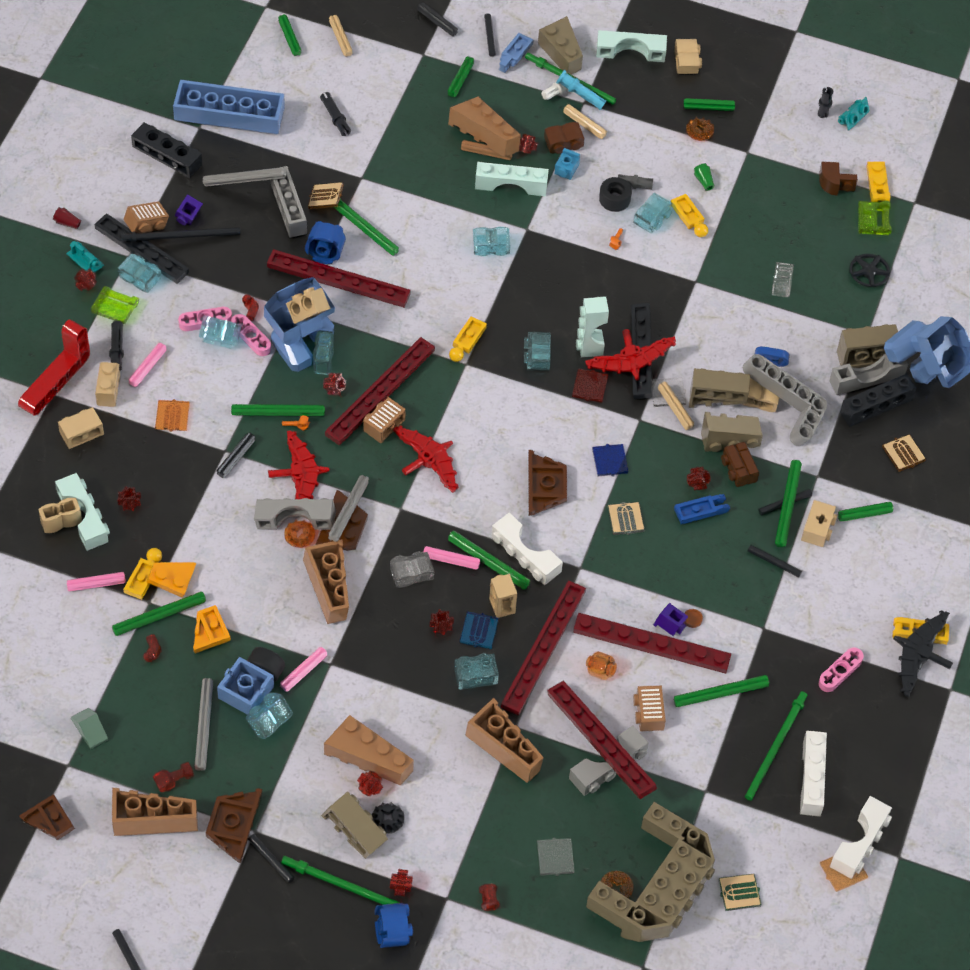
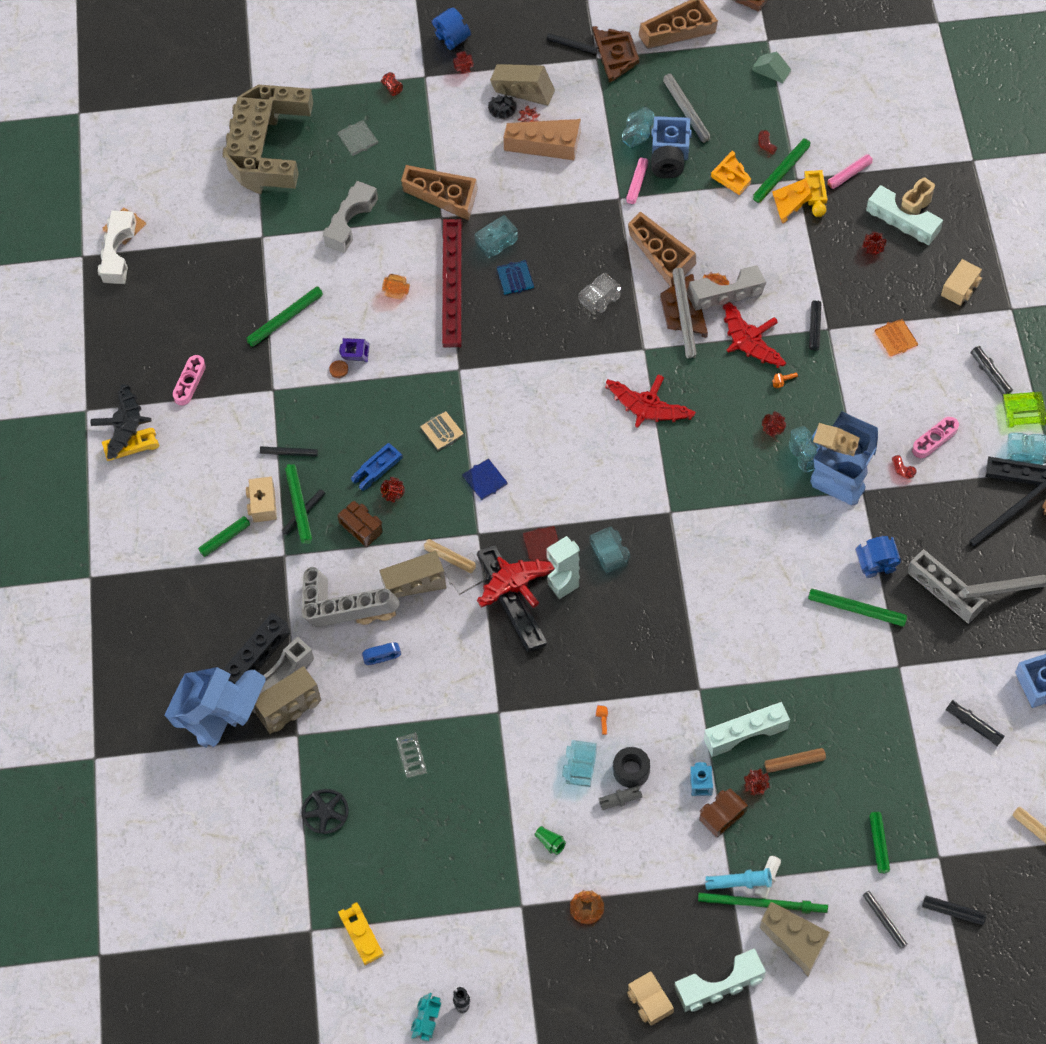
camera: 160 degrees right, 5 degrees up
(60, 371) = (1021, 325): red beam -> none
(107, 384) = (969, 328): tan brick -> none
(147, 364) = (952, 369): bright pink axle -> none
(166, 781) = (684, 55): clear red leg -> none
(188, 205) = (1033, 534): dark purple brick -> none
(220, 331) = (914, 421): clear light blue brick -> none
(253, 342) = (898, 442): bright pink beam -> none
(277, 410) = (808, 382): green axle -> none
(303, 867) = (544, 46): green bar -> none
(325, 195) = (917, 619): piece -> none
(339, 278) = (842, 535): dark red plate -> none
(379, 391) = (729, 442): dark red plate -> none
(383, 419) = (708, 412): medium nougat brick -> none
(441, 622) = (548, 262): clear red gear -> none
(452, 558) = (574, 322): bright pink axle -> none
(467, 338) = (683, 531): yellow plate -> none
(485, 125) = (812, 775): medium nougat wedge -> none
(488, 559) = (540, 335): green axle -> none
(491, 241) = (723, 647): clear light blue brick -> none
(503, 595) = (507, 297): tan brick -> none
(515, 51) = (842, 906): medium blue hinge -> none
(542, 564) = (492, 347): white arch -> none
(545, 483) = (529, 425): reddish brown wing -> none
(585, 121) = (715, 851): tan axle -> none
(602, 740) = (362, 217): dark red plate -> none
(619, 878) = (297, 128): clear orange gear -> none
(650, 708) = (337, 272): medium nougat brick -> none
(652, 643) = (363, 329): dark red plate -> none
(690, 215) = (542, 782): yellow plate -> none
(707, 104) = (593, 945): green axle -> none
(725, 431) = (383, 546): dark tan wedge -> none
(740, 892) = (201, 174): piece -> none
(798, 704) = (214, 334): green bar -> none
(814, 773) = (177, 278): white arch -> none
(833, 181) = (412, 904): reddish brown brick -> none
(868, 217) = (353, 881): clear neon green plate -> none
(904, 452) = (210, 618): piece -> none

